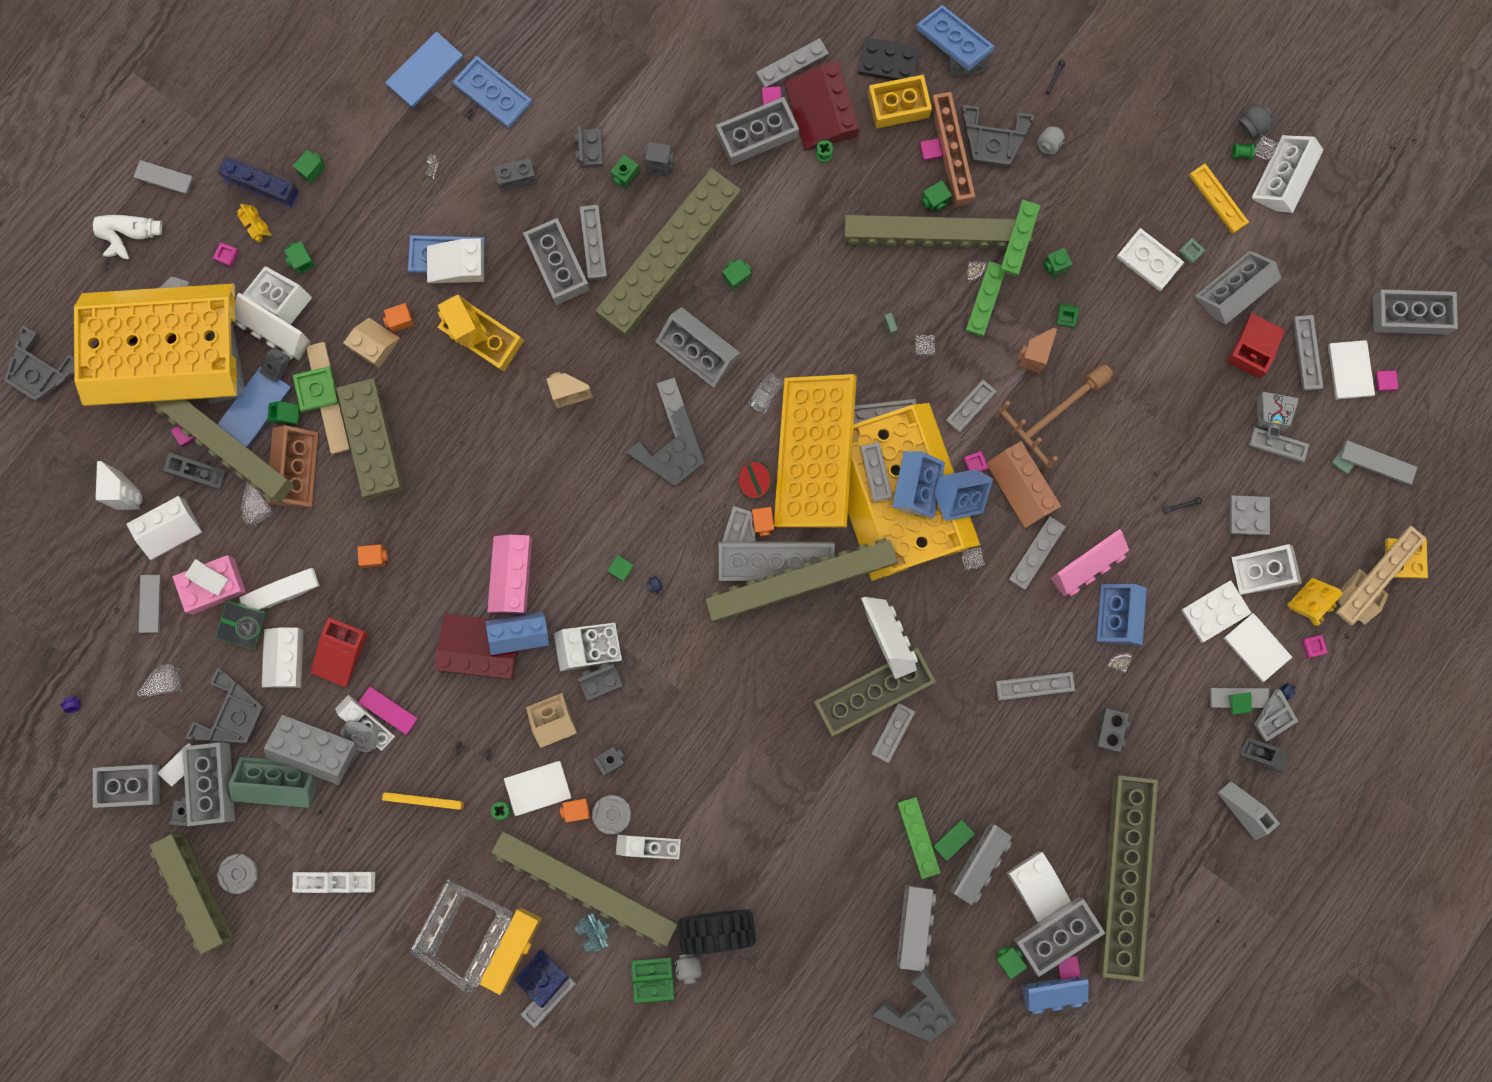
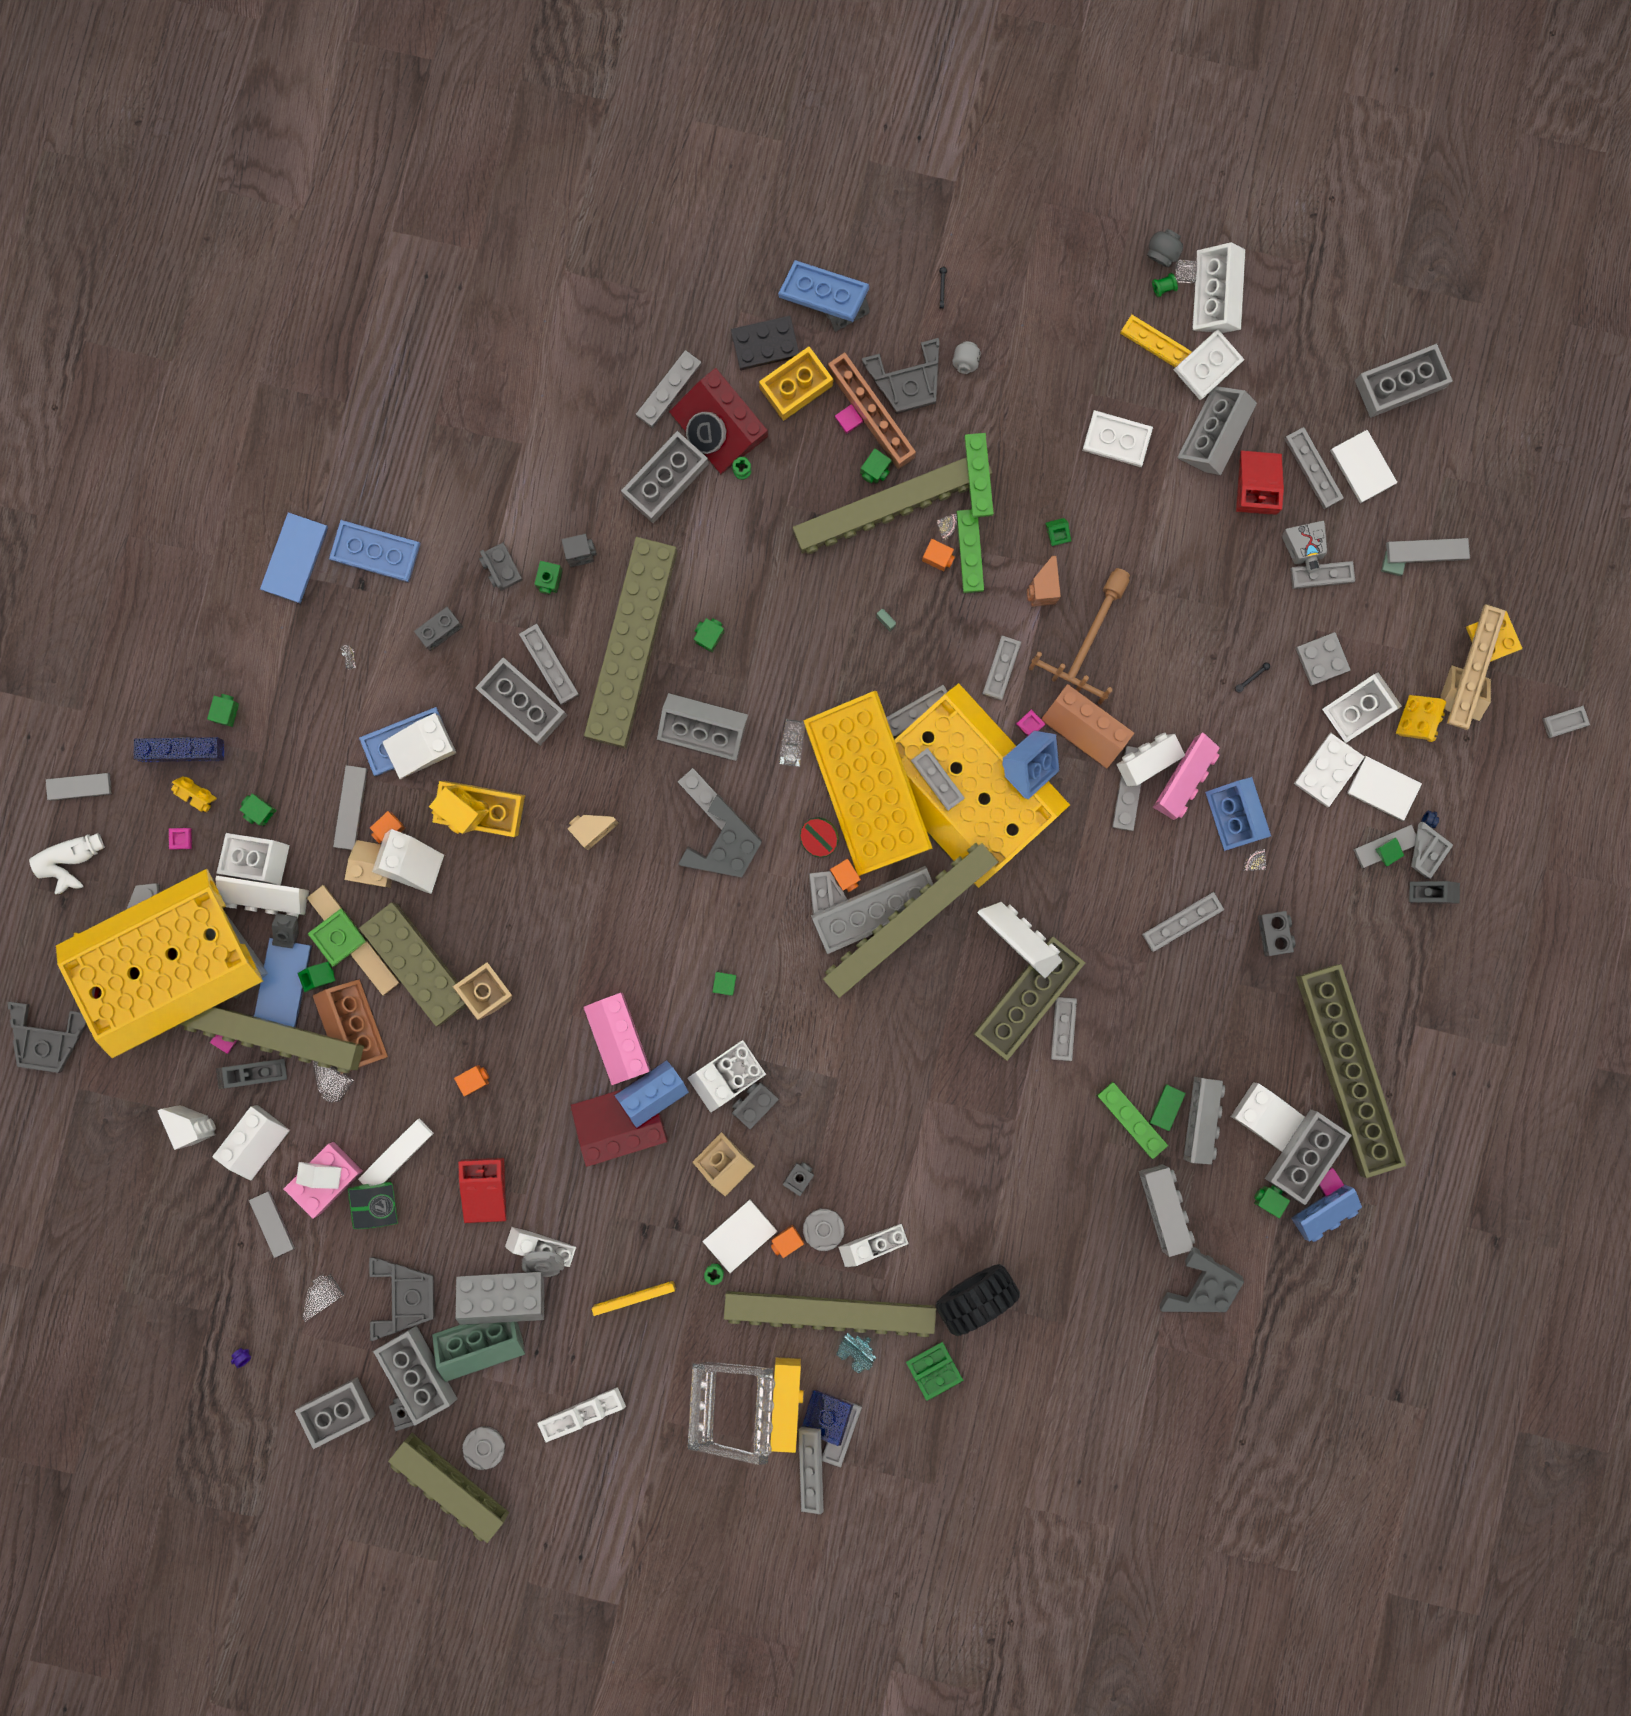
camera: 25 degrees left, 5 degrees up
(173, 769) = (374, 1374): white slope -> none
(282, 658) = (429, 1220): white slope -> none
(376, 288) = (350, 807): none -> light grey tile
(388, 710) = (558, 1225): dark pink tile -> none
(402, 351) = (408, 861): none -> white slope
(414, 485) = (483, 992): none -> tan slope
(507, 1019) = (811, 1470): none -> light grey tile
(654, 584) = (765, 985): dark blue plate -> none
(688, 968) = (964, 1346): light grey head -> none
(770, 94) = (662, 432): dark pink tile -> none
(807, 109) = (706, 432): none -> black tile
(918, 484) = (984, 773): medium blue slope -> none
(924, 345) = (929, 626): clear plate -> none
(957, 290) = (938, 555): none -> orange brick
(973, 558) = (1068, 821): clear plate -> none
(1057, 263) = (1026, 483): green brick -> none
(1065, 534) = (1150, 759): none -> white brick
(1191, 251) = (1155, 412): sand green tile -> none
(1249, 811) = (1440, 954): light grey slope -> none
(1253, 230) = (1208, 364): none -> white tile
(1314, 646) = (1439, 762): dark pink tile -> none
(1386, 380) = (1403, 462): dark pink tile -> none
(1440, 659) = (1566, 721): none -> light grey tile

